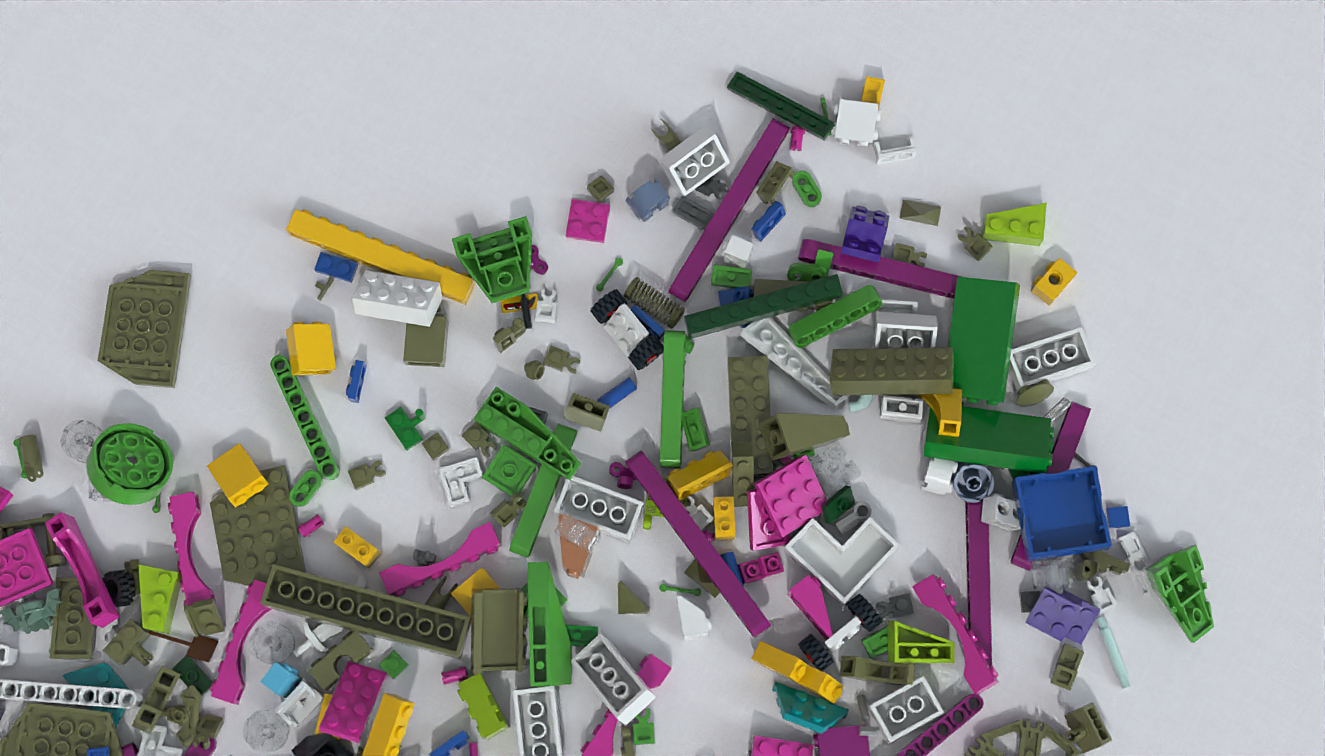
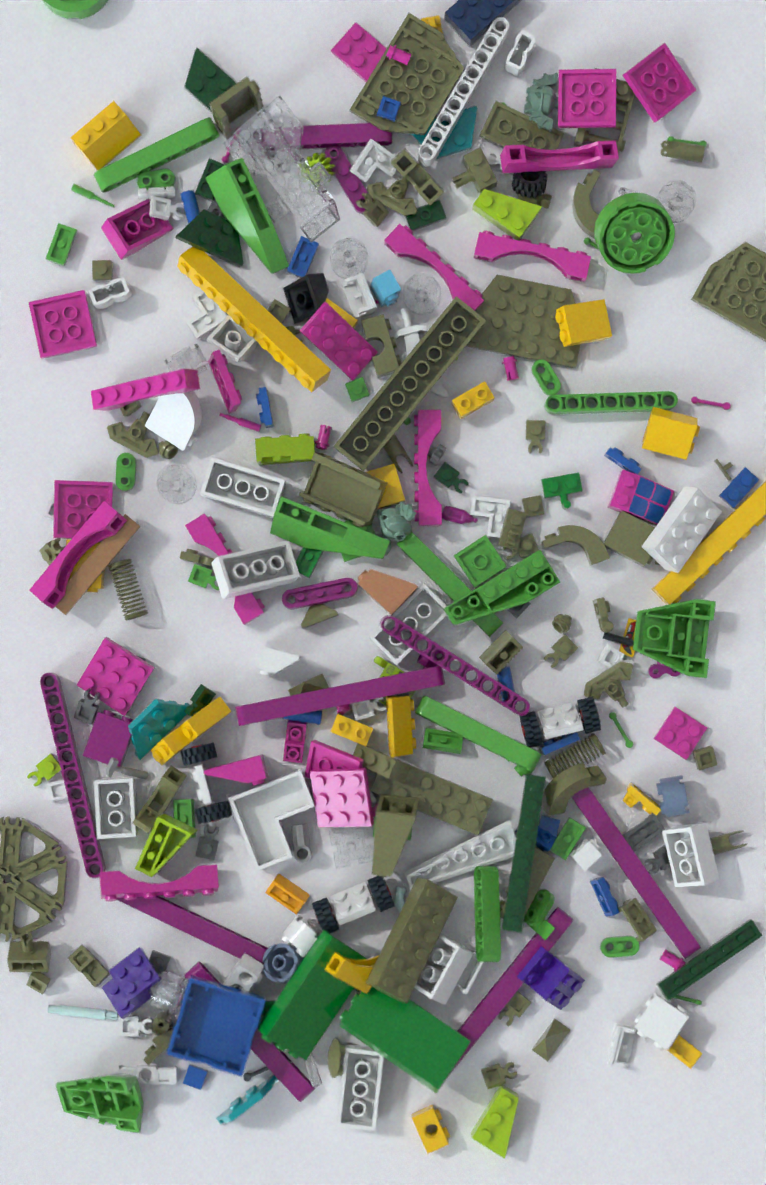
camera: 115 degrees right, 10 degrees up
(124, 528) = (581, 206): none -> olive arch
(200, 648) = (447, 231): reddish brown piece -> none
(204, 617) = (470, 244): olive plate -> none
(263, 312) = (725, 406): none -> dark pink hinge
(384, 351) = (640, 497): none -> slope
(441, 538) = (448, 476): none -> dark green plate
(447, 376) = (586, 539): none -> olive arch
(465, 454) = (512, 529): none -> olive plate
(475, 512) = (457, 515): none -> magenta piece
(506, 511) = (445, 542): olive plate -> none
(507, 562) = (397, 523): none -> sand green helmet
(570, 301) = (610, 683): none -> olive piece
(577, 534) = (390, 594): clear brick -> none
(608, 609) = (319, 593): none -> magenta plate
(618, 456) = (463, 669): none -> magenta beam
(663, 587) = (317, 649): bright green hinge -> none
(664, 235) = (635, 795): none -> yellow hinge
(680, 295) = (567, 783): none -> olive arch
(762, 677) = (200, 699): none -> dark green plate
(837, 504) = (317, 834): dark green plate -> none
(886, 442) = (353, 904): none -> plate
(901, 409) = (376, 932): white brick -> none
(906, 509) = (287, 893): none -> light orange slope
(1107, 707) = (38, 982): none -> olive plate
(1115, 455) = (253, 1096): none -> teal wing

